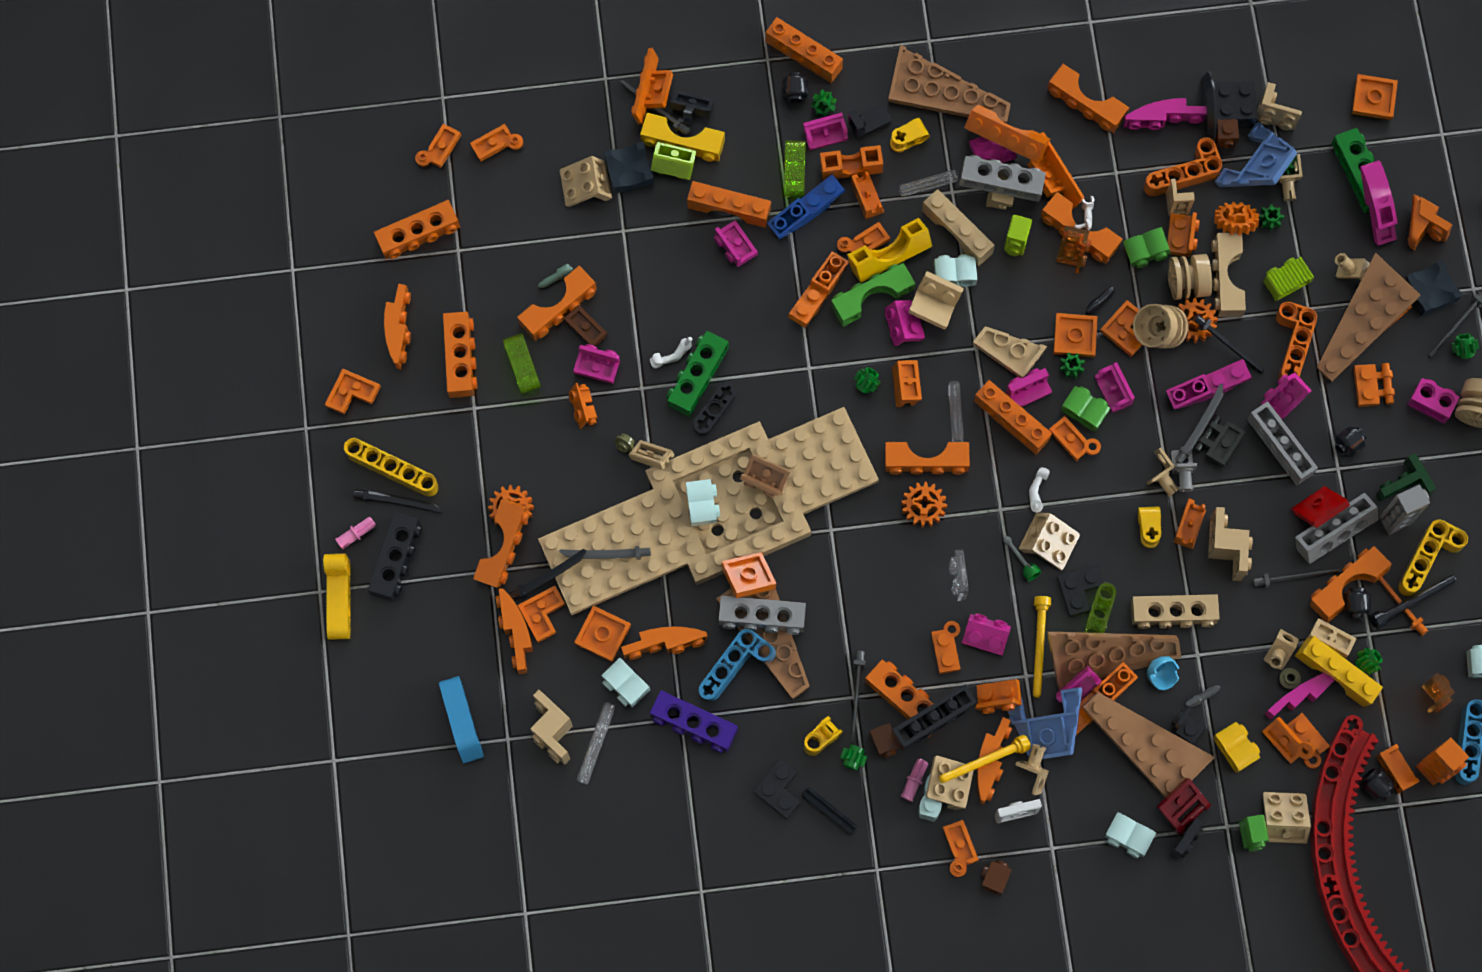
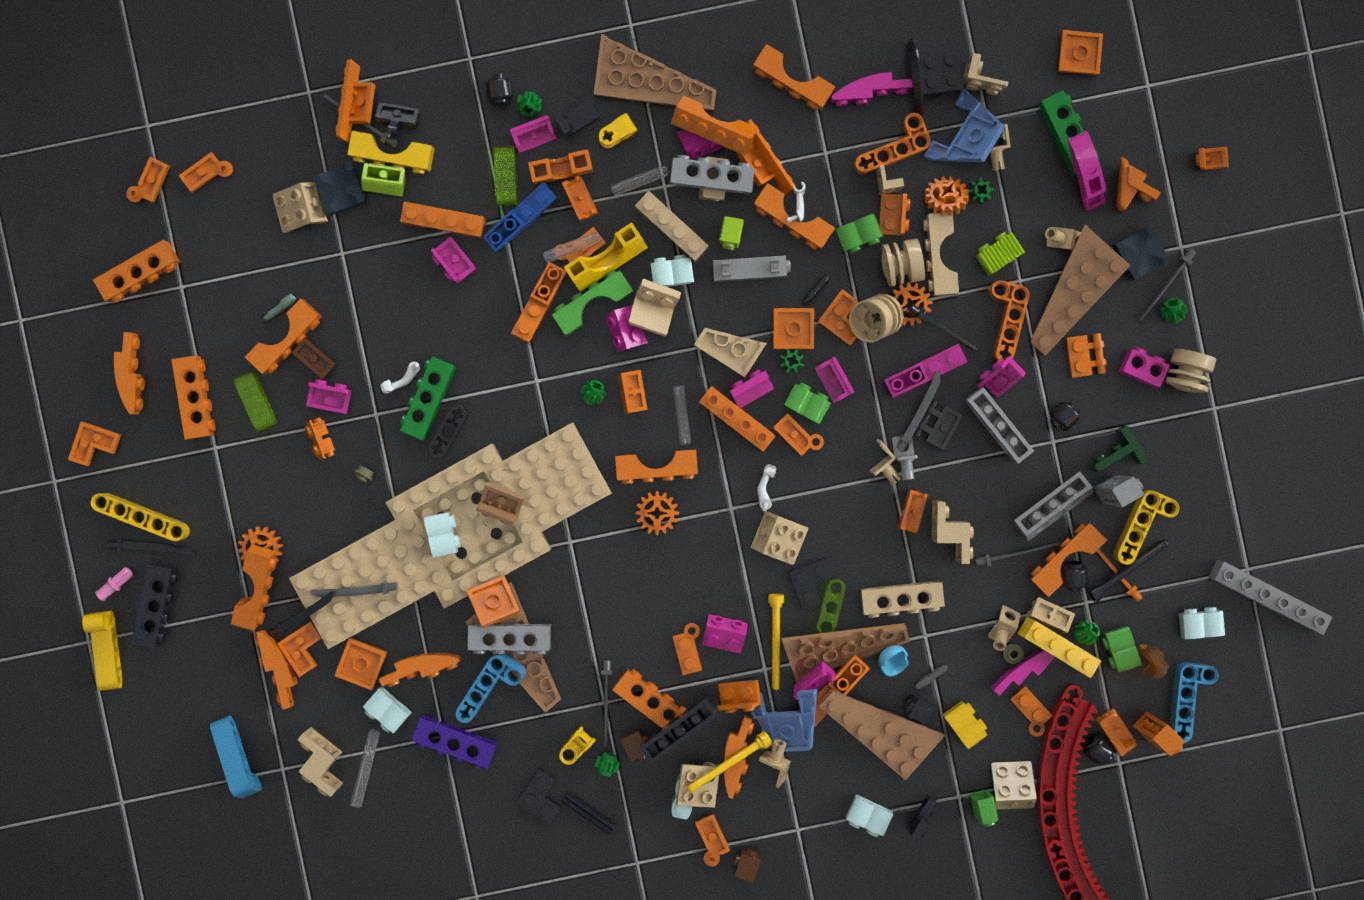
camera: 10 degrees left, 15 degrees up
(648, 457) = (402, 491): tan tile -> none
(804, 50) = (504, 48): orange brick -> none
(856, 237) = (571, 247): none -> clear axle
(914, 780) = (665, 779): bright pink axle -> none
(958, 569) = (695, 591): clear plate -> none
(1017, 810) = (763, 805): white plate -> none
(1030, 570) = (762, 568): hinge -> none
(1035, 273) = (751, 268): none -> light grey brick
(1072, 247) = (787, 240): clear orange bracket -> none
(1150, 522) = (874, 511): yellow piece -> none
(1179, 801) = (914, 781): dark red plate -> none
(1227, 133) = (934, 105): reddish brown brick -> none
(1286, 741) = (1012, 715): orange hinge -> none
(1320, 507) = (1037, 486): red plate -> none
(1405, 681) = (1121, 649): none -> bright green brick

